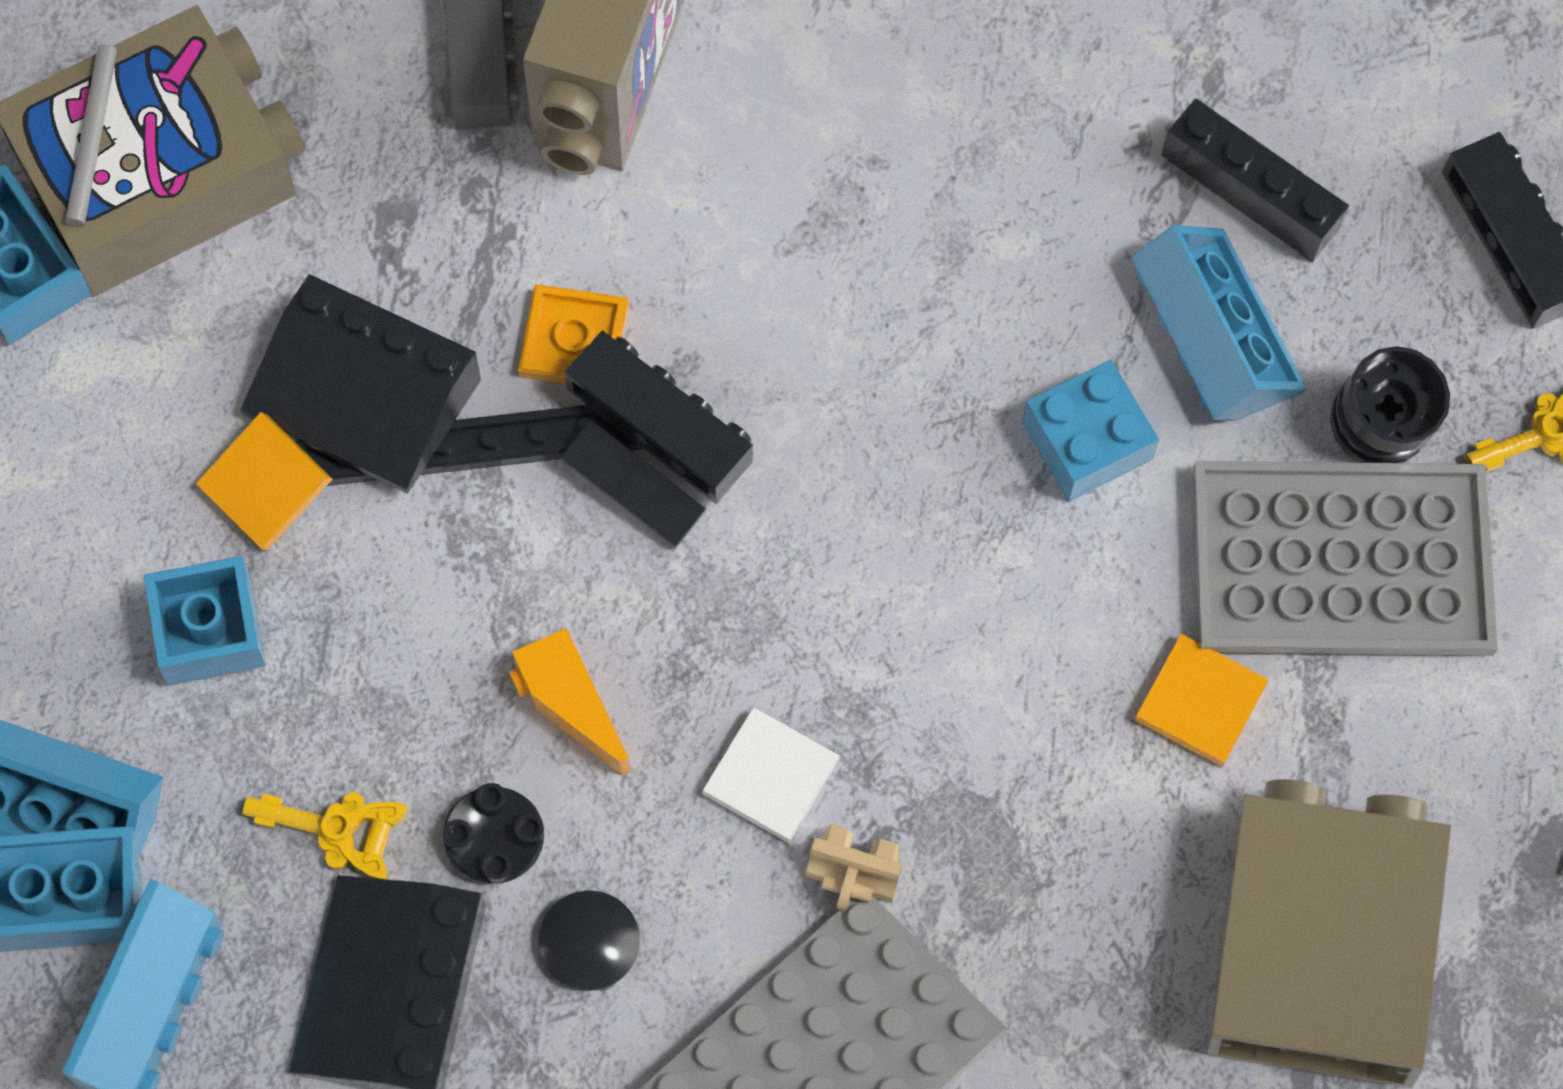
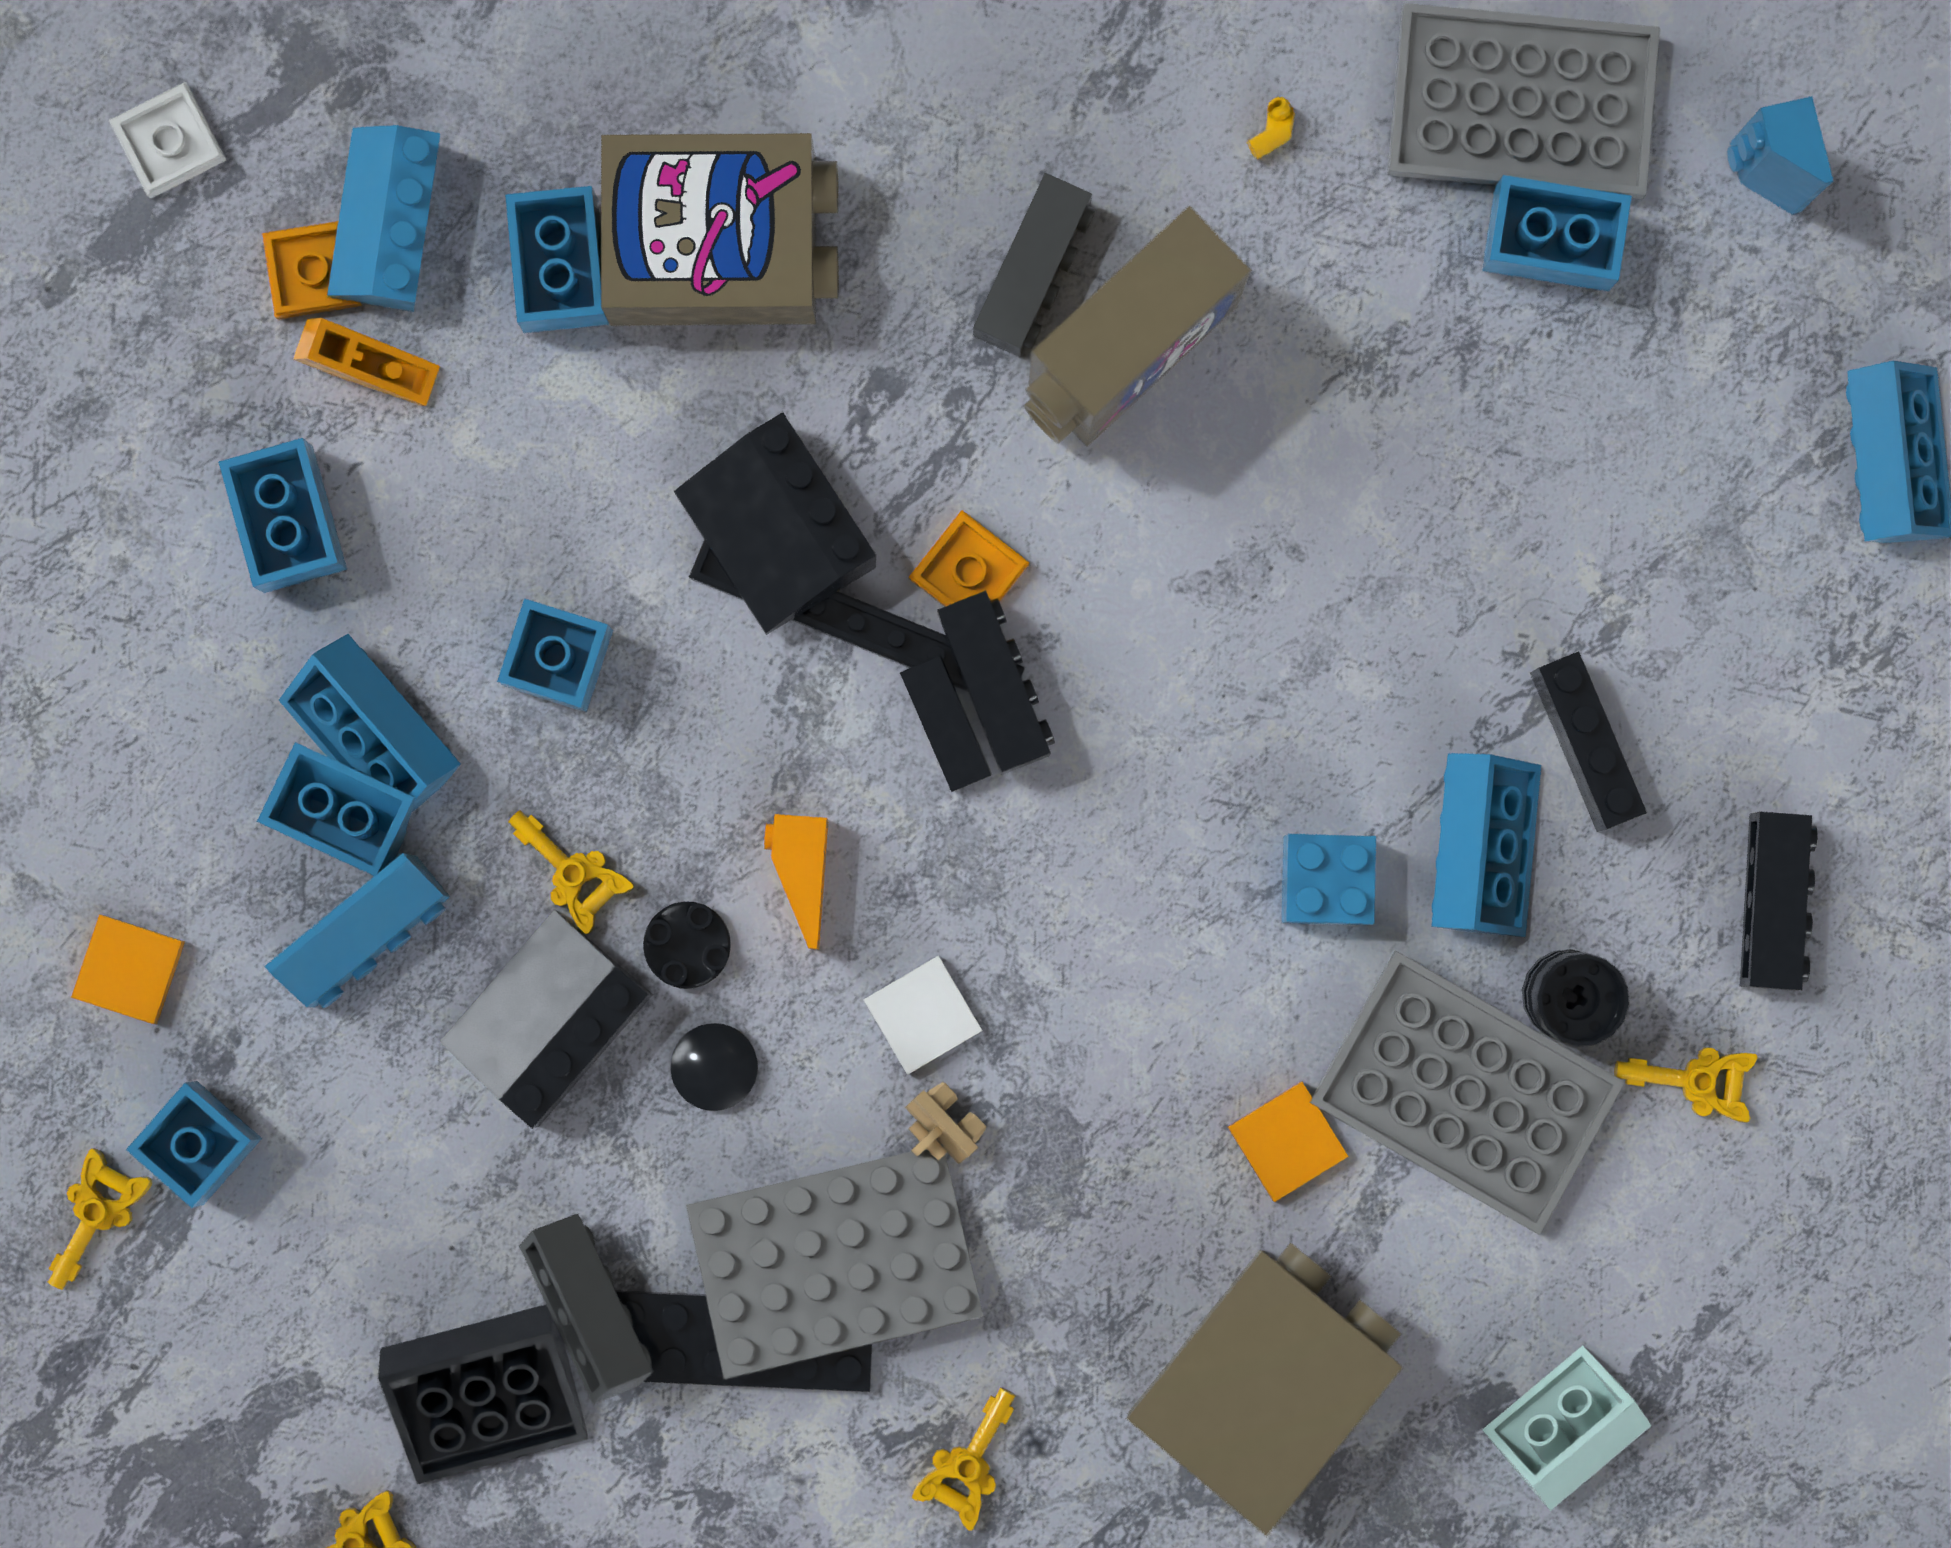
camera: 30 degrees right, 15 degrees up
(91, 135) = (666, 207): light grey bar -> none
(264, 481) = (661, 561): light orange tile -> none

